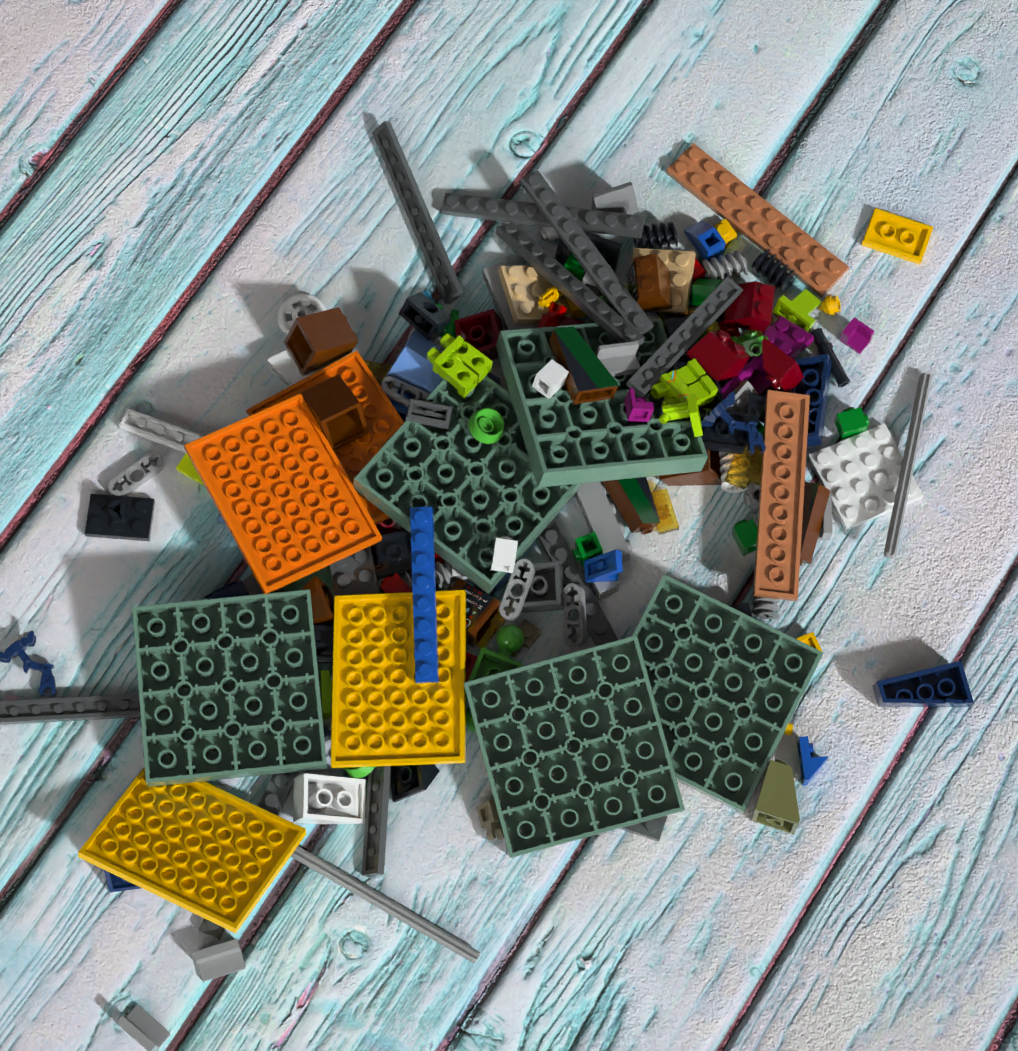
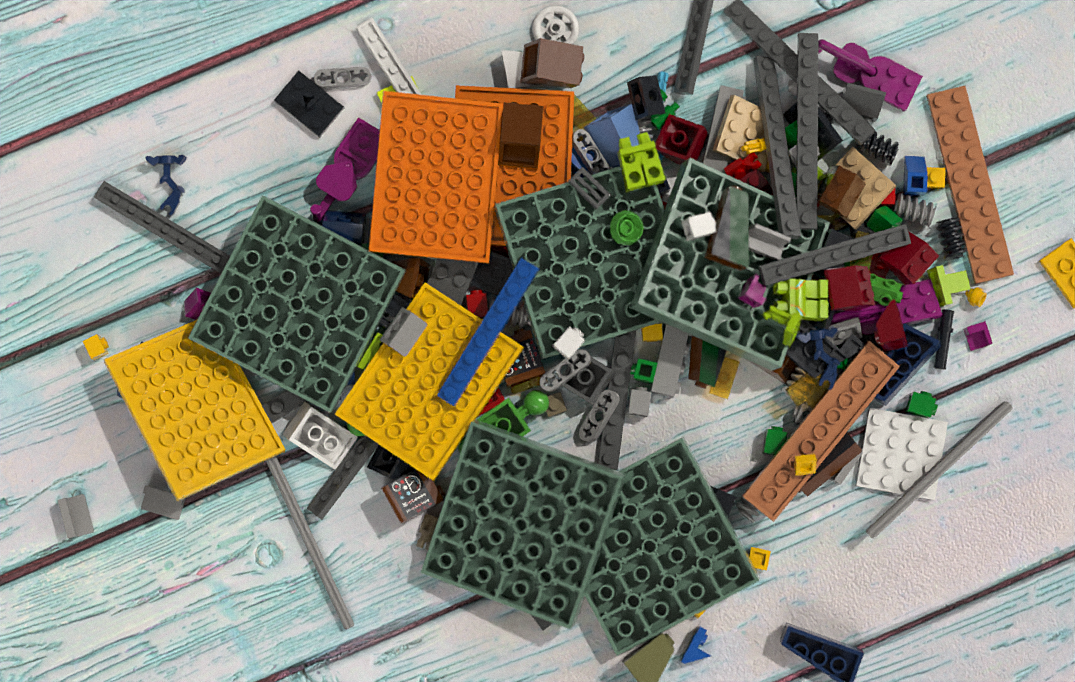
camera: 30 degrees right, 15 degrees up
(60, 858) = (96, 347): none -> yellow plate
(131, 756) = (195, 303): none -> magenta panel
(194, 539) = (339, 179): none -> magenta plate
(345, 648) = (403, 331): none -> light grey panel
(453, 795) = (412, 495): none -> slope
(571, 514) = (652, 333): none -> yellow plate
(584, 181) = (890, 77): none -> magenta plate
(604, 567) = (643, 396): blue slope -> none
(789, 528) = (805, 464): none -> yellow plate

